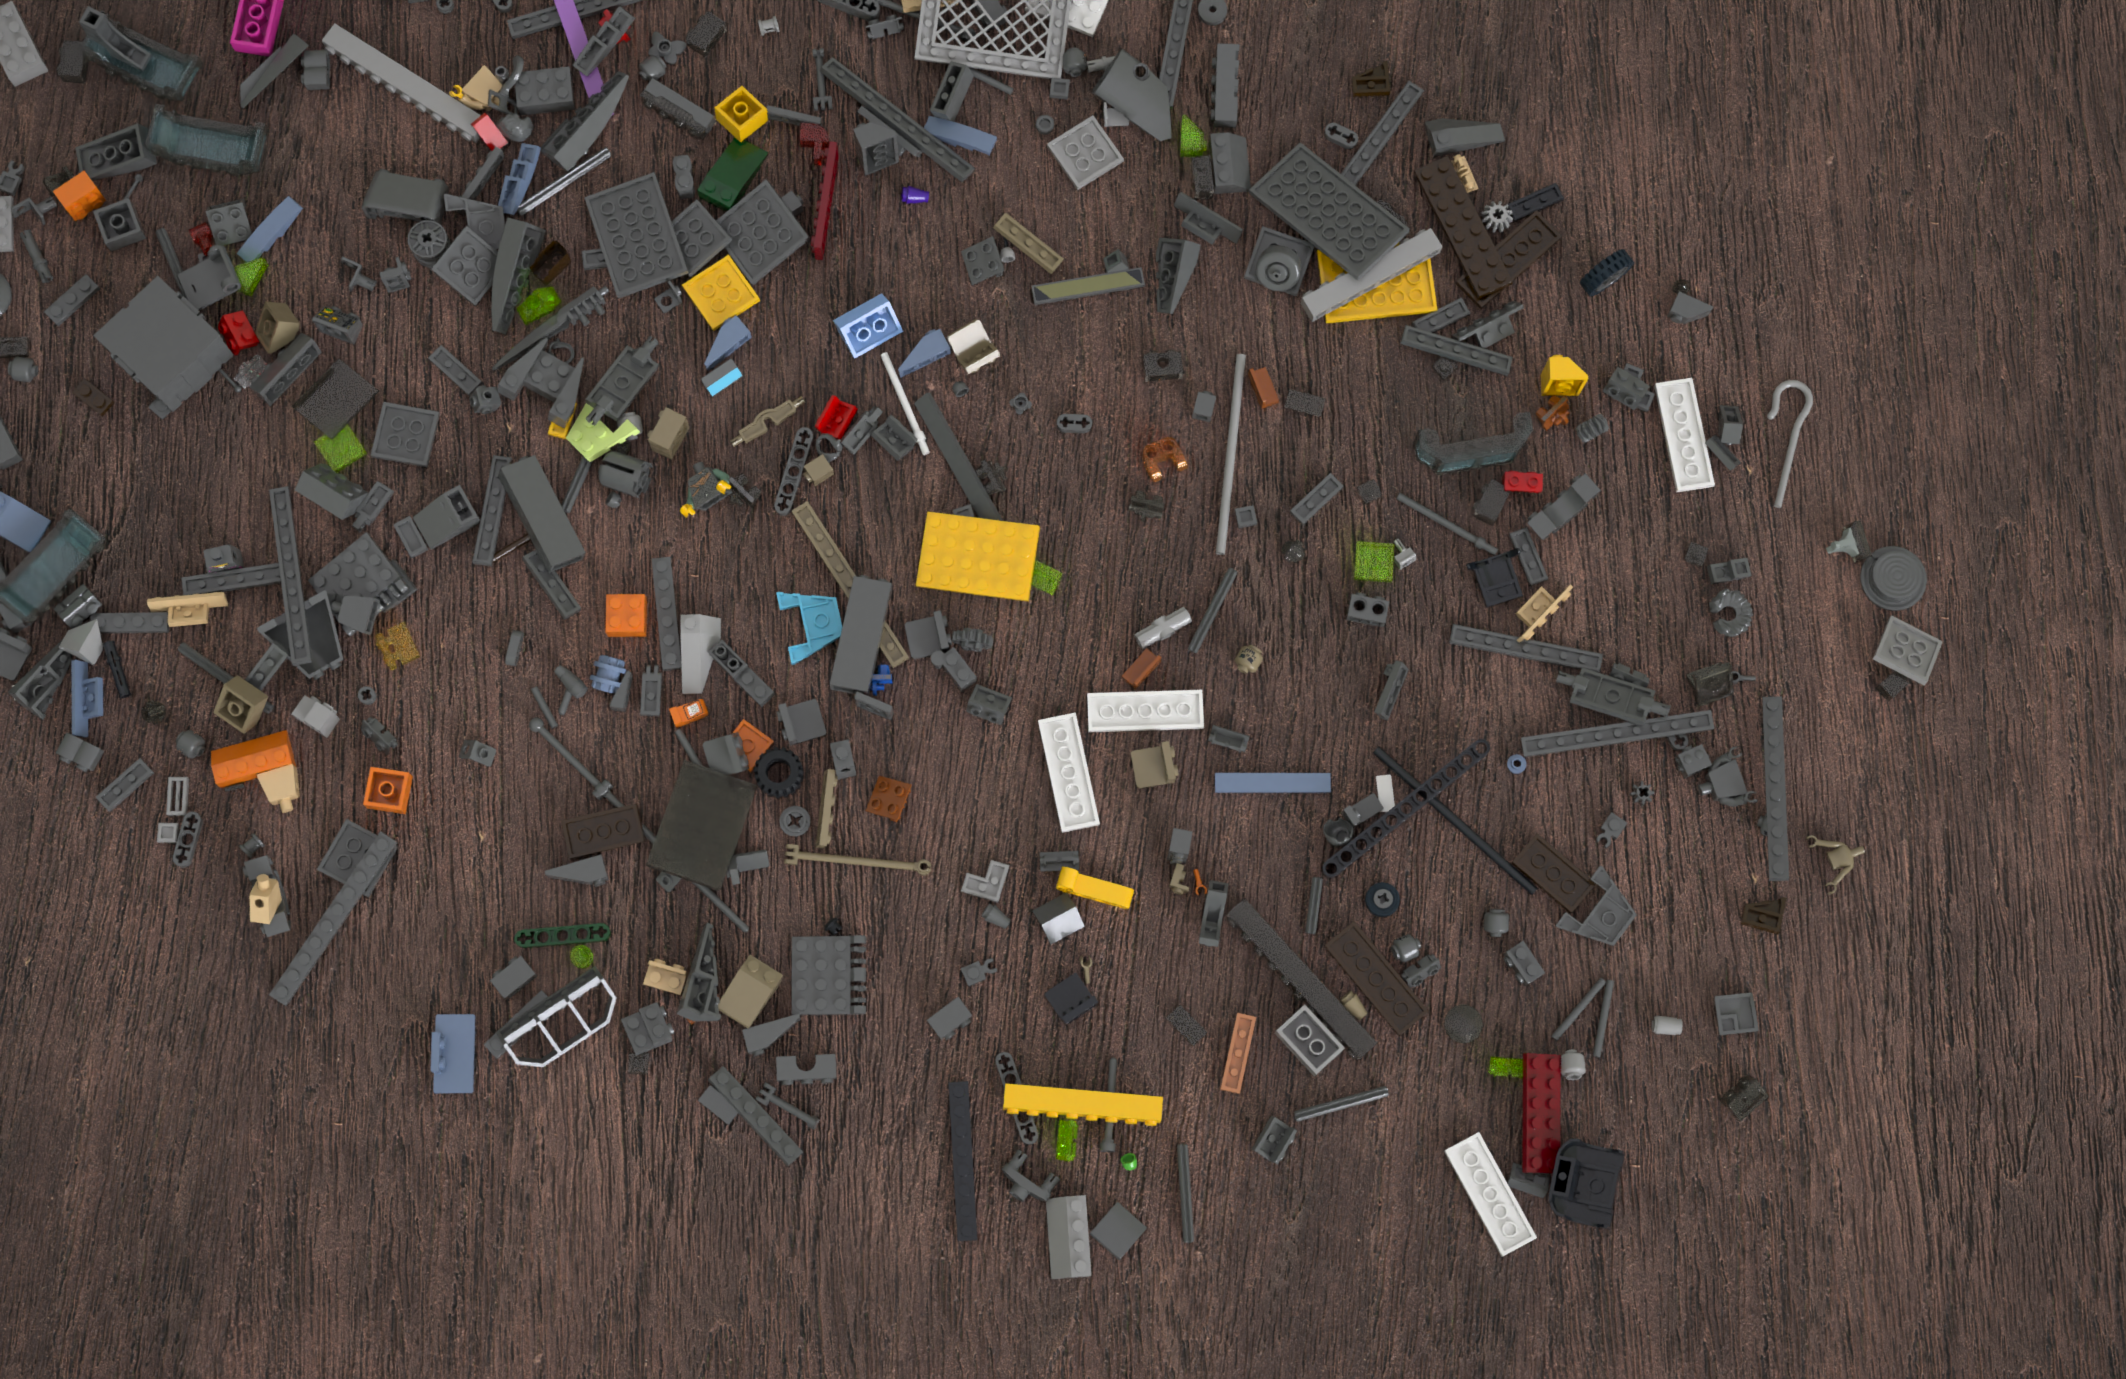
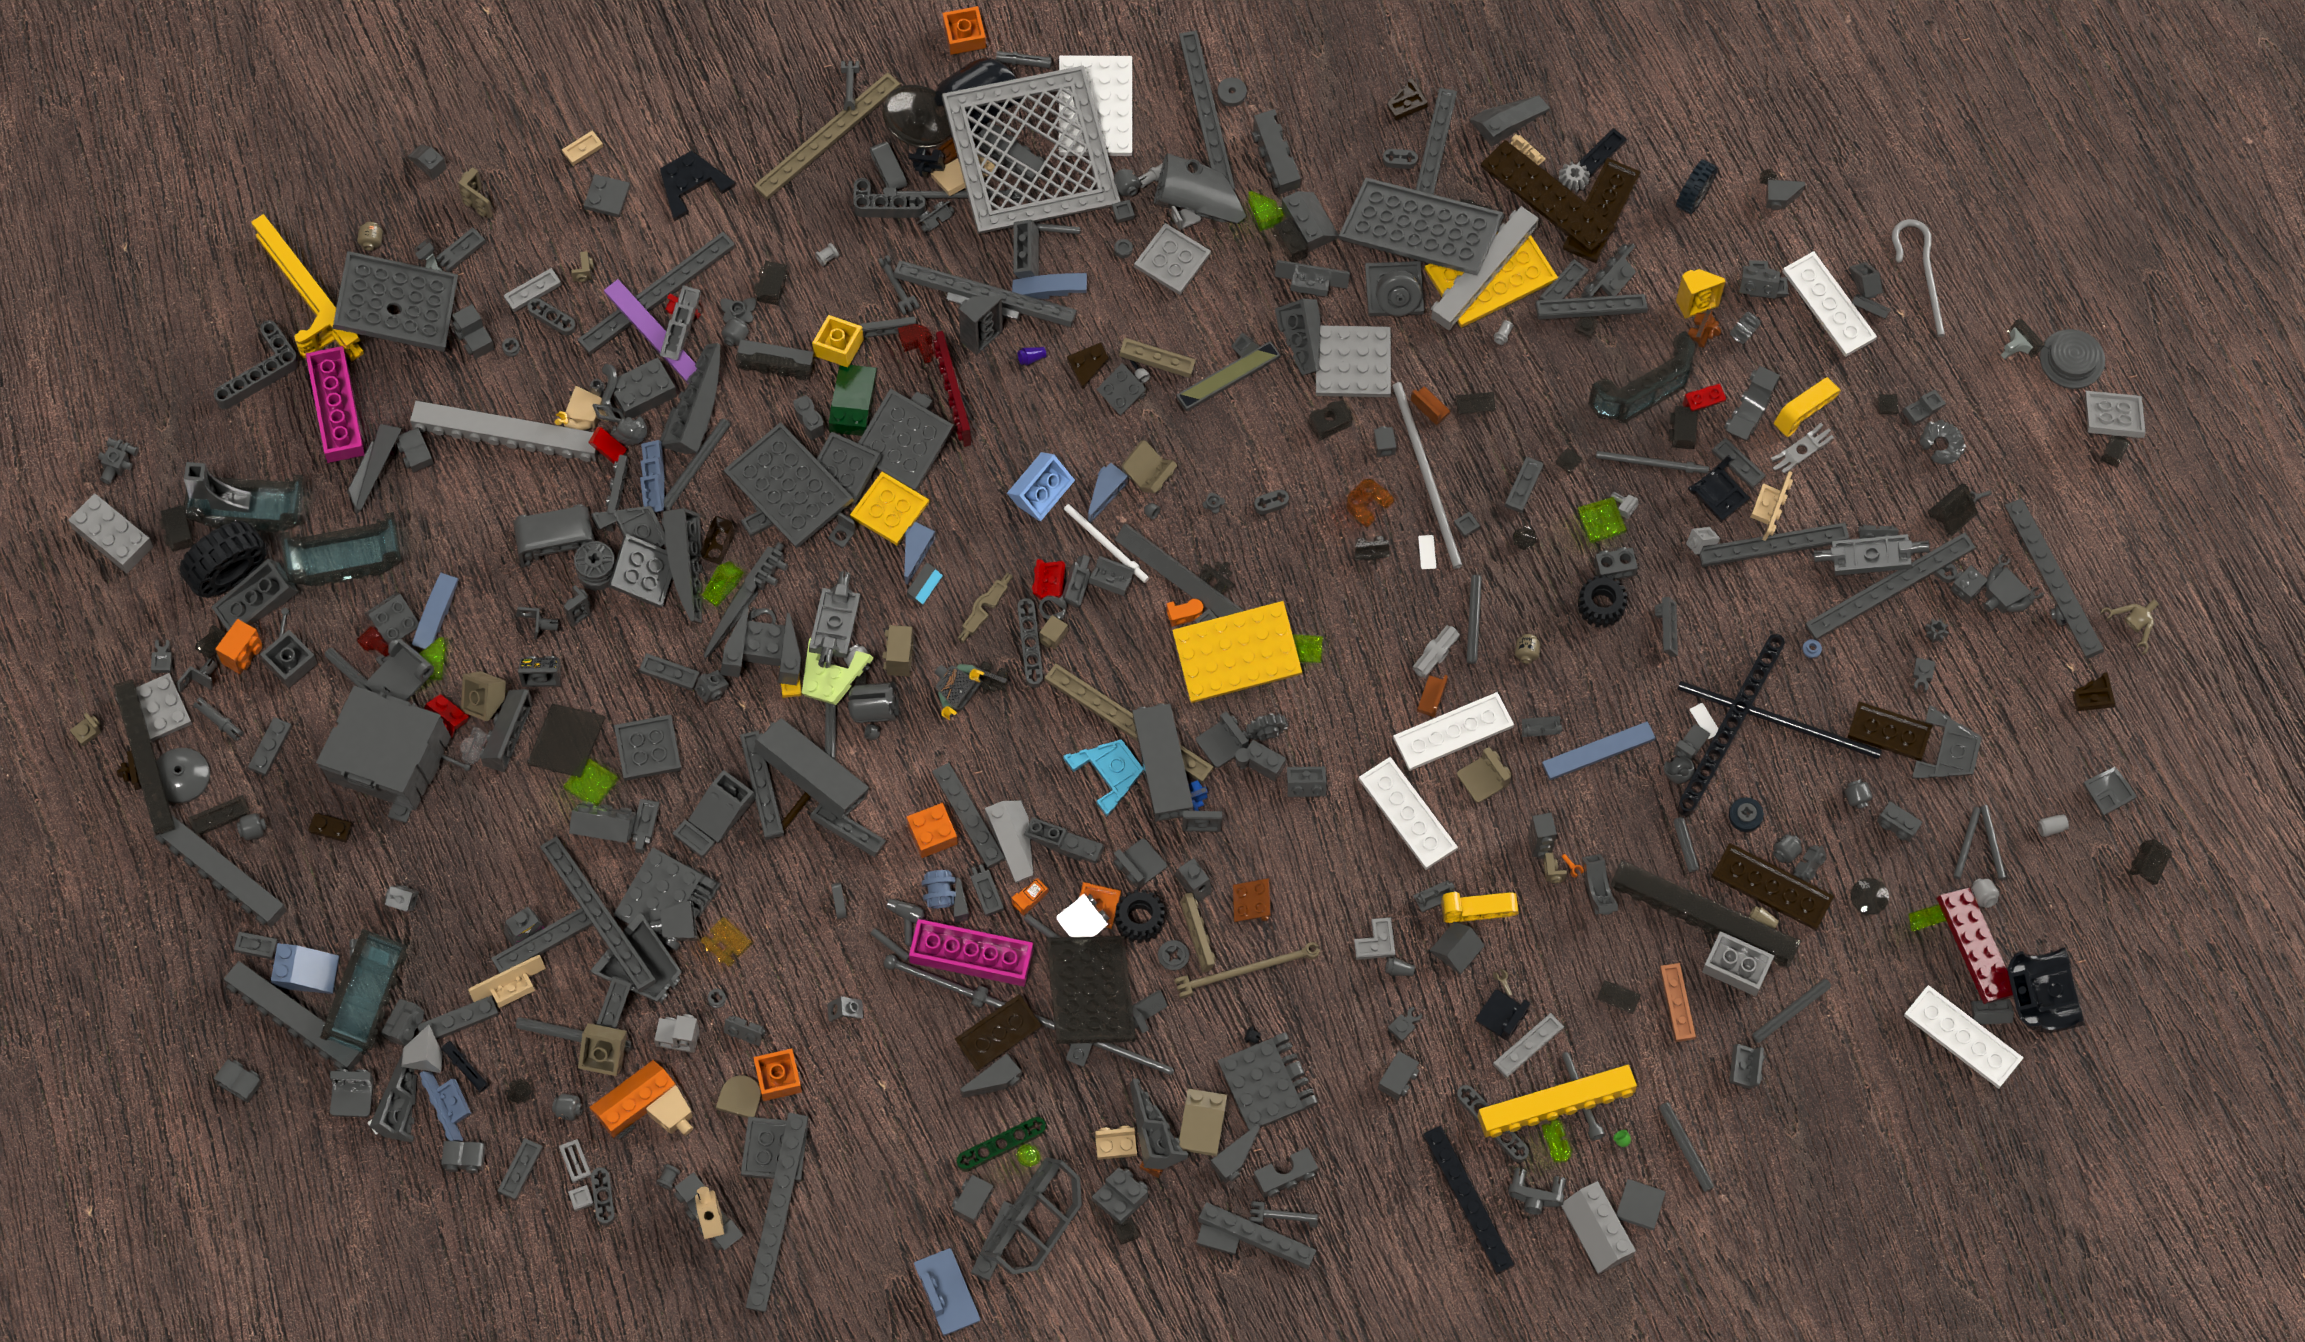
camera: 20 degrees left, 10 degrees down
(93, 108) = (222, 559): none -> black tyre
(125, 490) = (401, 897): none -> head
(347, 796) = (740, 1097): none -> dark tan tile
(610, 745) = (971, 952): none -> dark pink brick
(947, 499) = (1185, 612): none -> orange leg
(963, 223) = (1087, 363): none -> dark brown wing
(1082, 1037) = (1528, 1045): none -> light grey tile
(1198, 528) = (1427, 552): none -> white sticker
(1211, 317) = (1354, 361): none -> light grey plate
(1343, 626) = (1608, 588): none -> black tyre
(1359, 346) = (1501, 336): none -> light grey pin
(1460, 616) = (1701, 537): none -> light grey bracket
(1603, 561) = (1810, 442): none -> light grey piece
(1616, 526) = (1805, 406): none -> yellow beam

